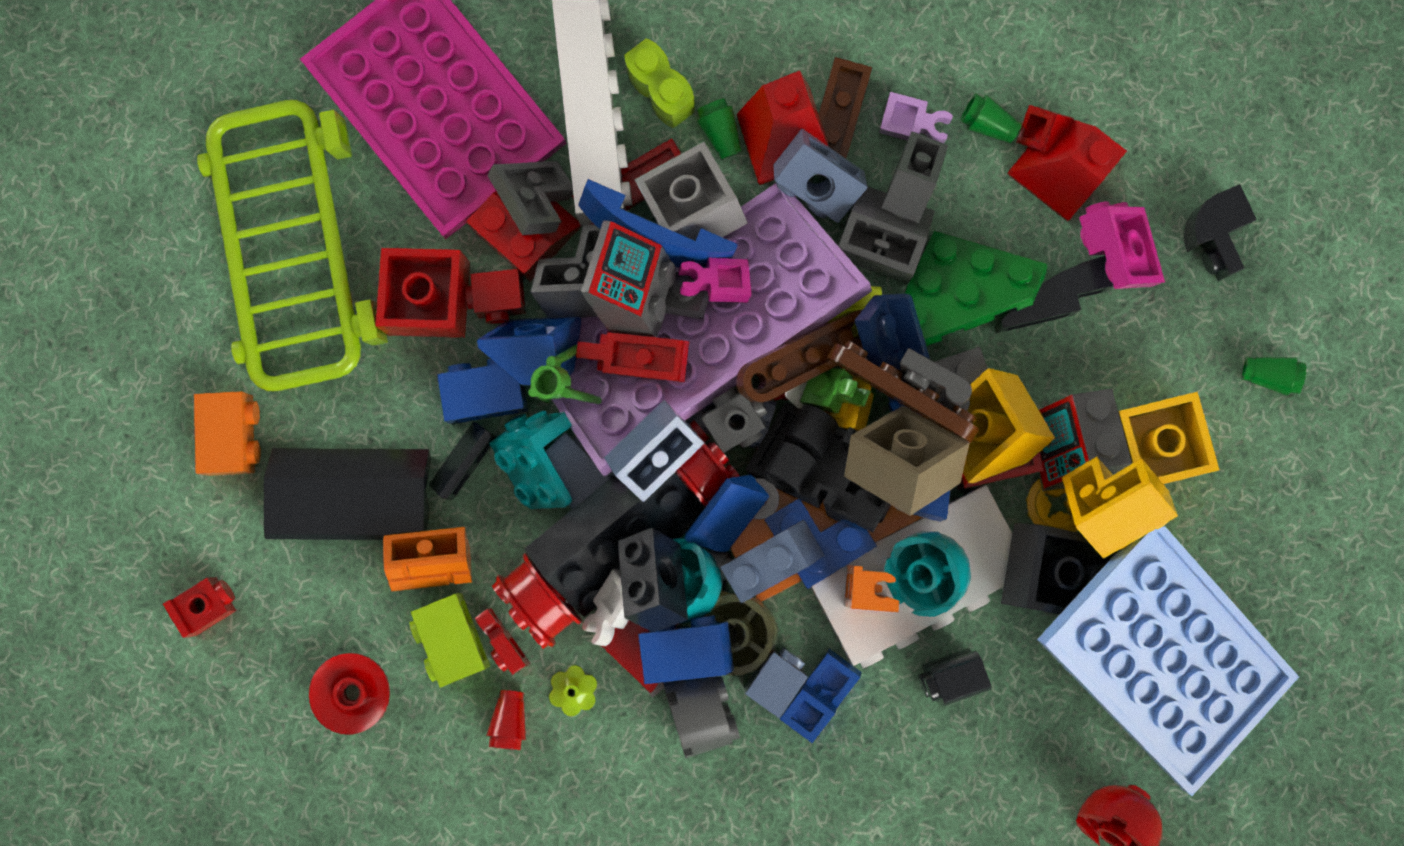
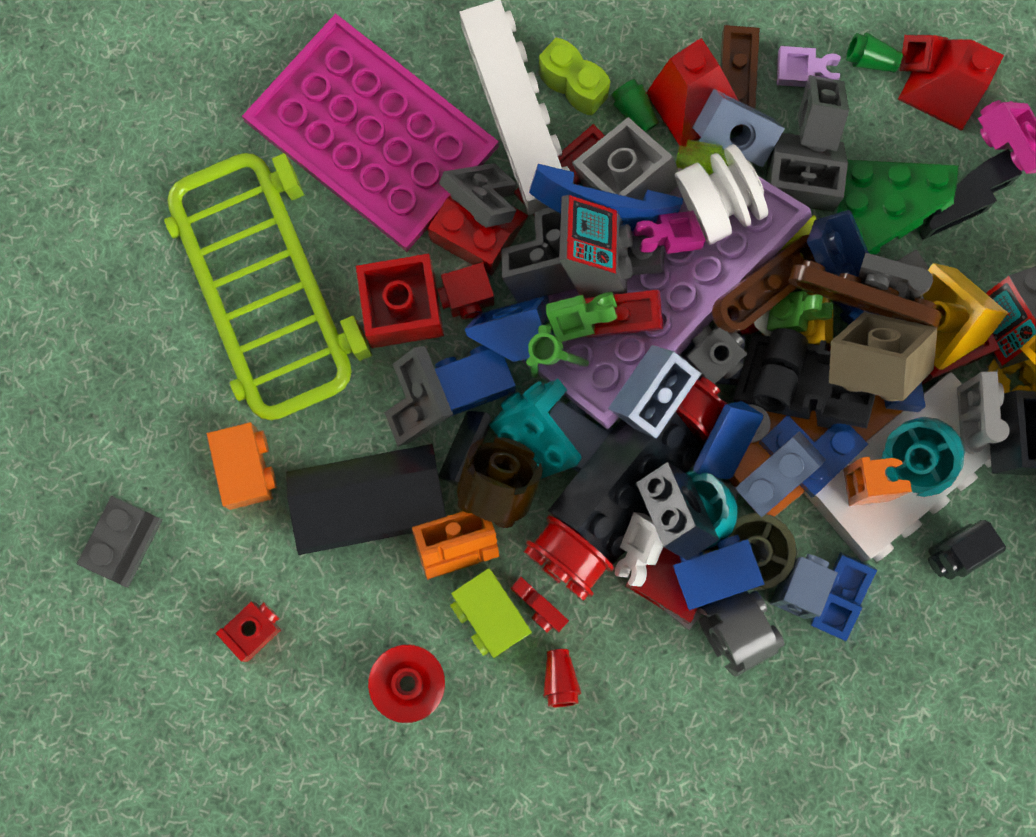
camera: 20 degrees left, 5 degrees down
(89, 486) = (119, 542): none -> dark grey plate
(424, 407) = (424, 401): none -> dark grey plate
(481, 506) = (498, 481): none -> dark brown brick
(583, 686) = (603, 645): lime plant -> none
(594, 354) = (576, 318): none -> bright green plate
(772, 206) = (698, 152): none -> clear neon green brick
(775, 250) = (722, 193): none -> white wheel
(1001, 527) = (981, 401): none -> light grey plate

